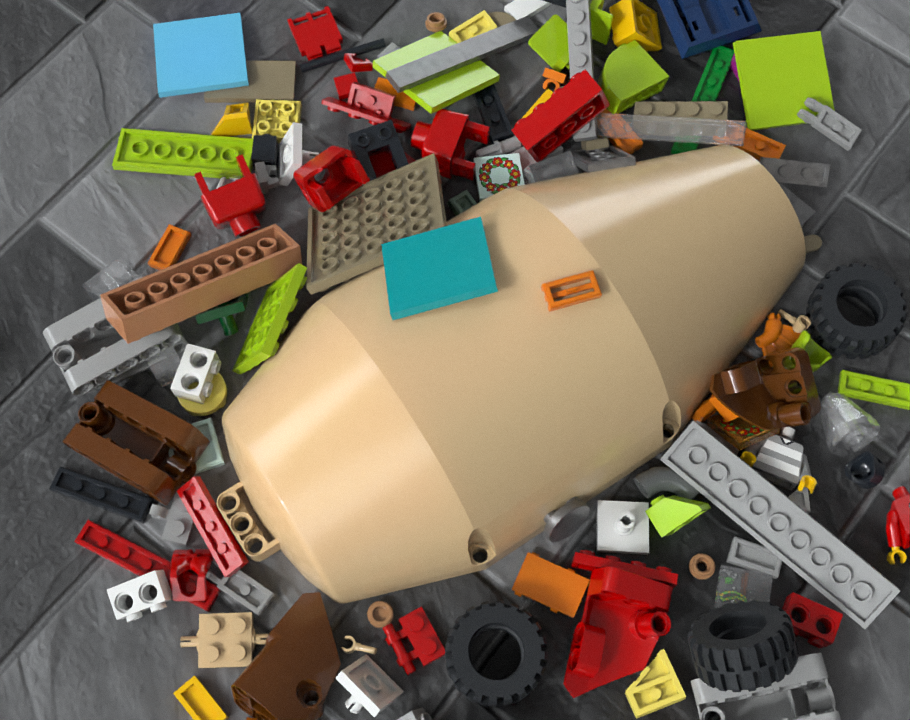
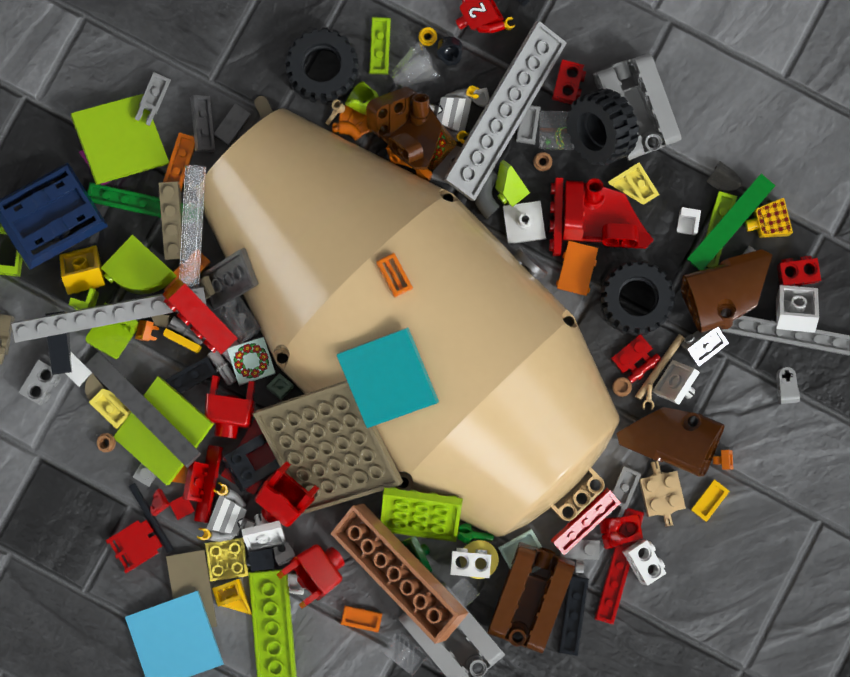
camera: 105 degrees left, 15 degrees up
(234, 387) = (471, 534): none -> green bar
(323, 124) = (227, 517): none -> light grey torso
(398, 673) = (660, 366): none -> tan bar
(889, 444) = (427, 30): none -> yellow plate

